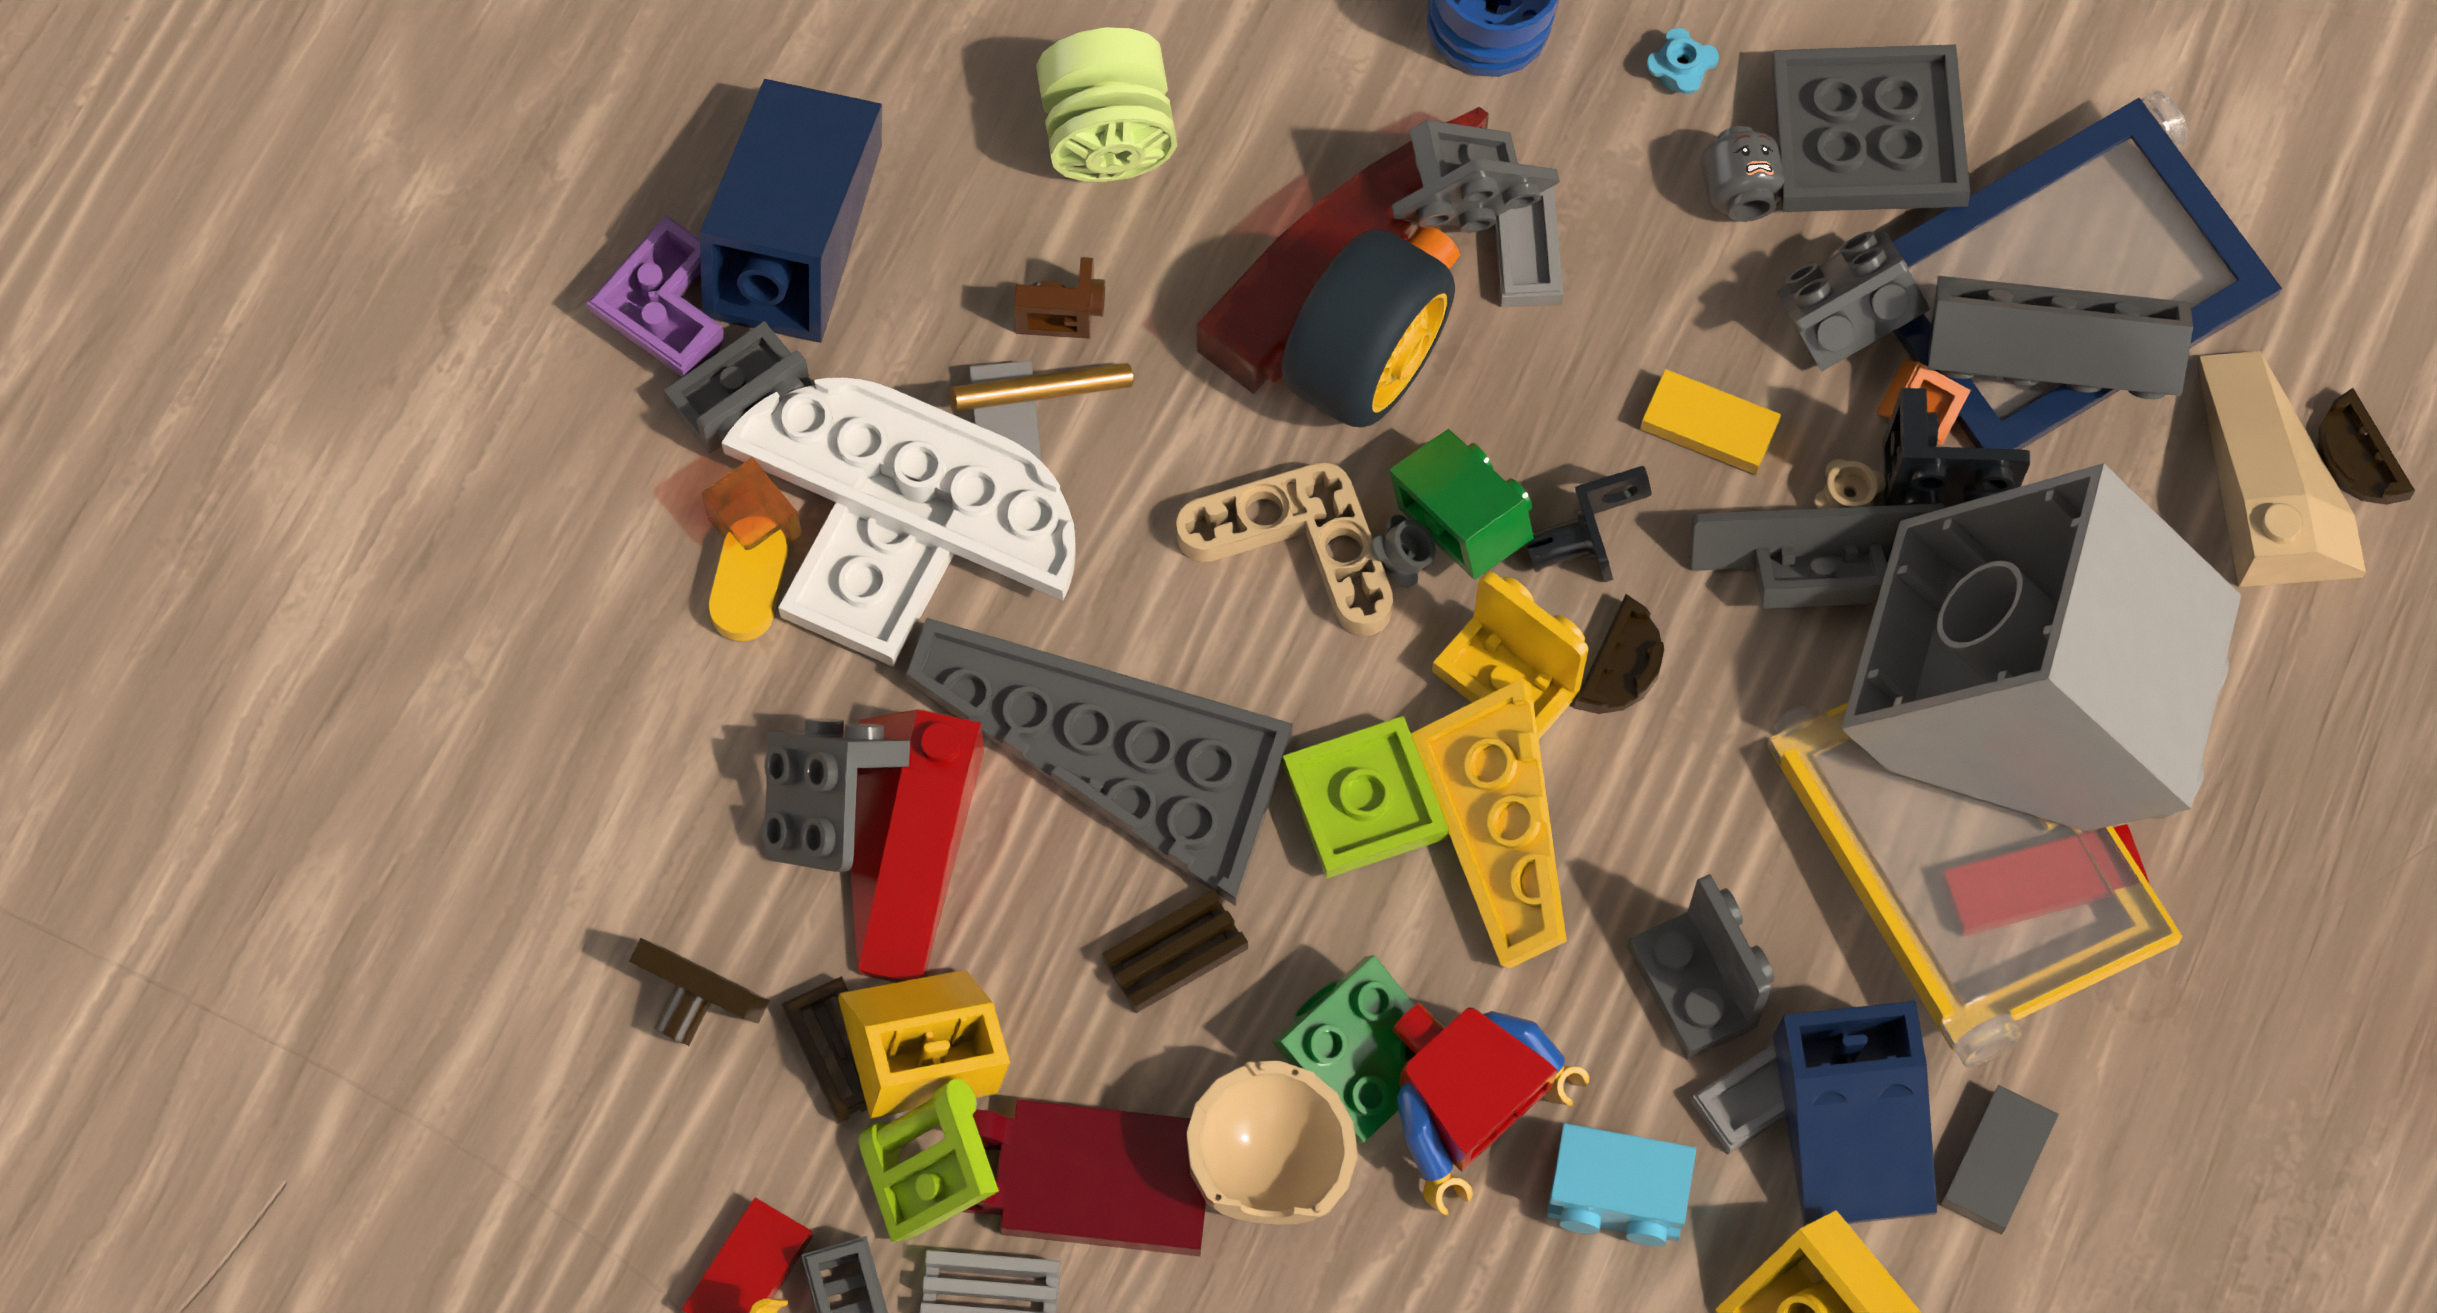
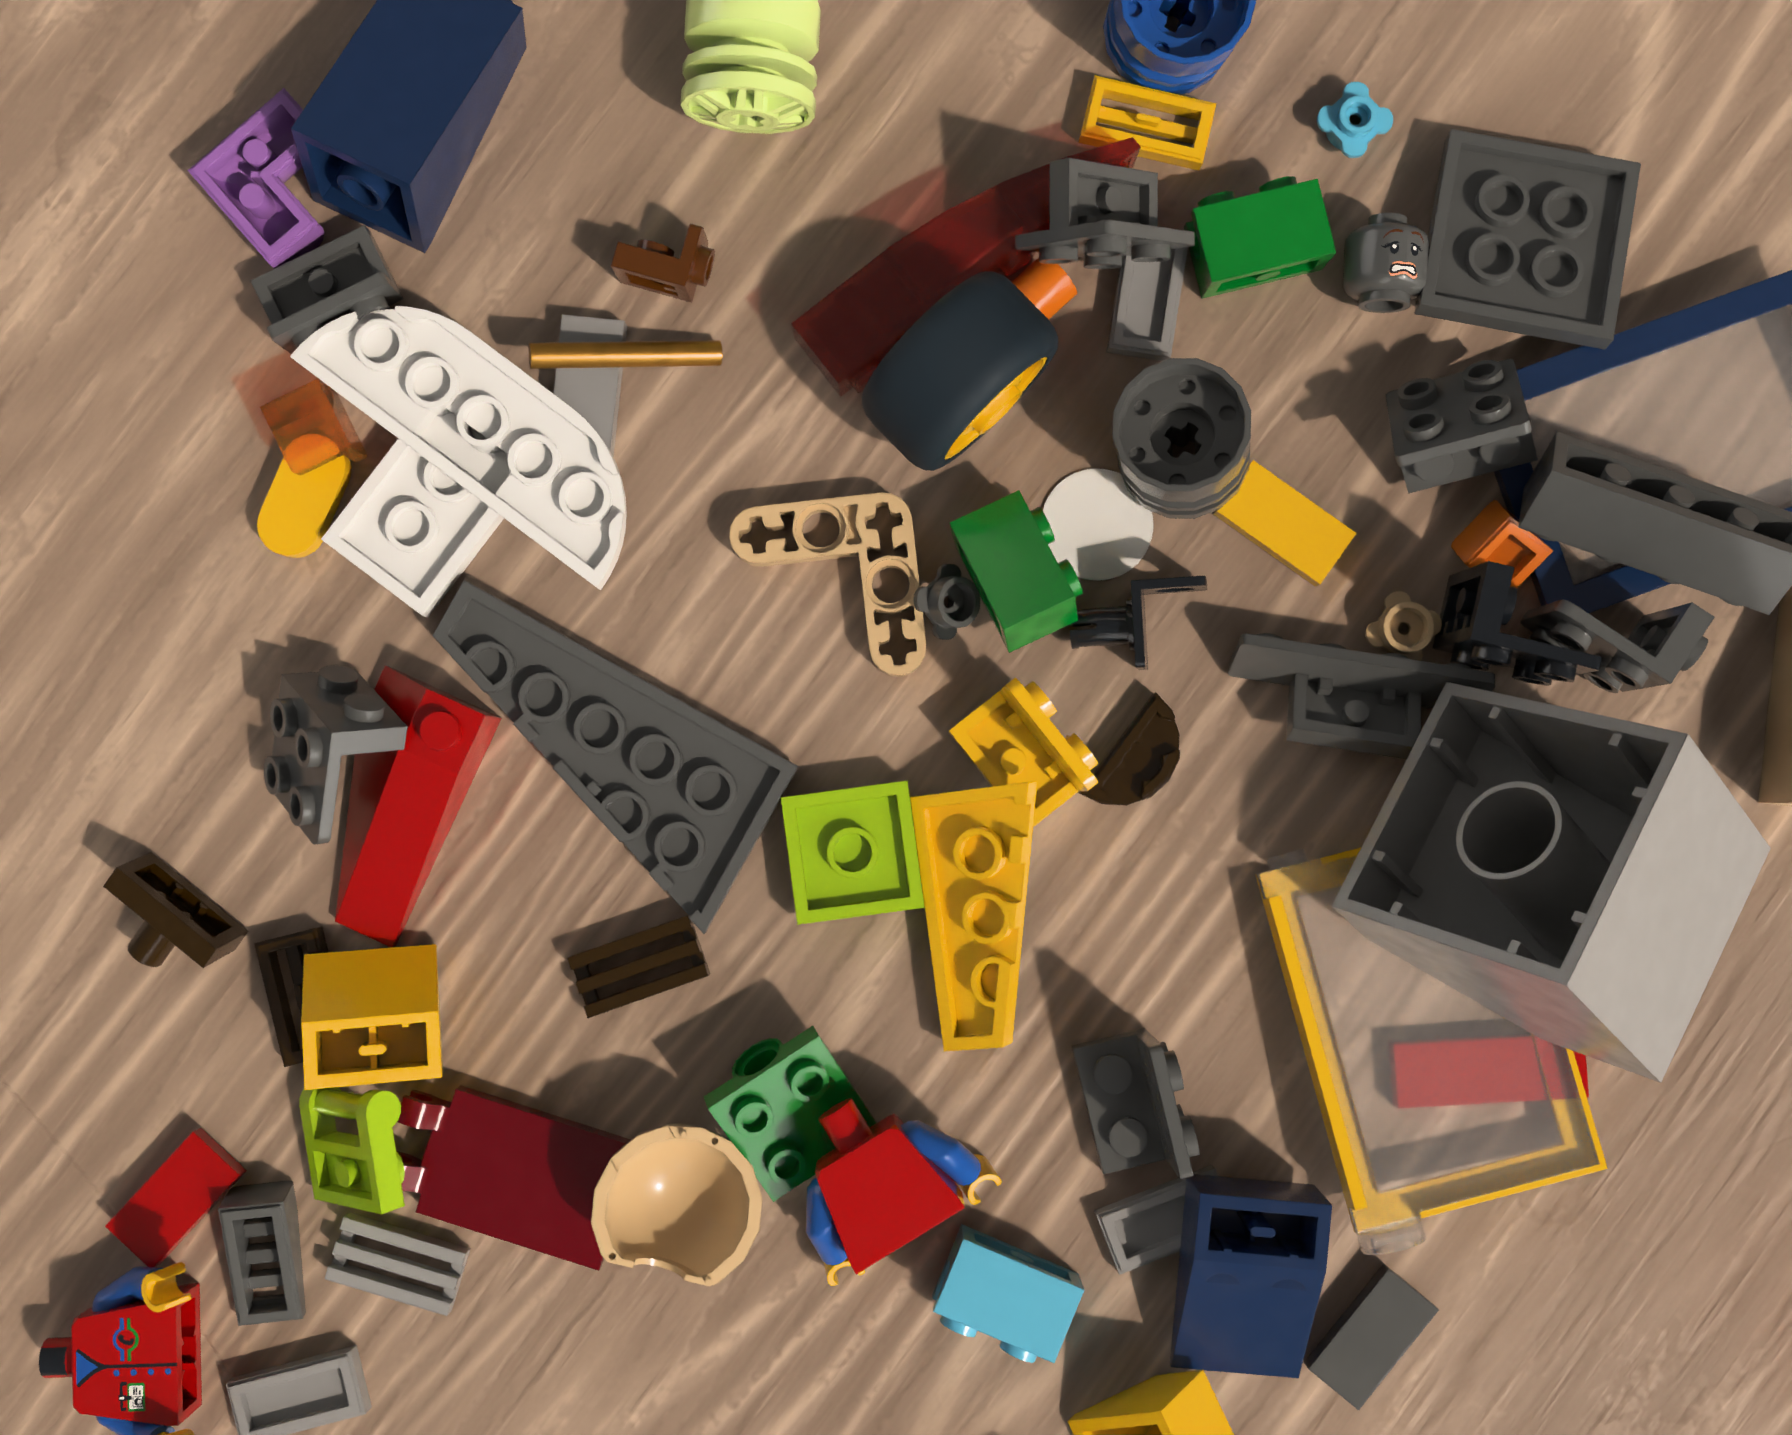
camera: 15 degrees right, 20 degrees up
(1505, 112) = (1151, 99): none -> yellow tile
(1537, 453) = (1097, 524): none -> white sticker
(1592, 353) = (1176, 405): none -> dark grey wheel
(1620, 175) = (1259, 236): none -> green brick
(2052, 452) = (1648, 658): none -> dark grey bracket

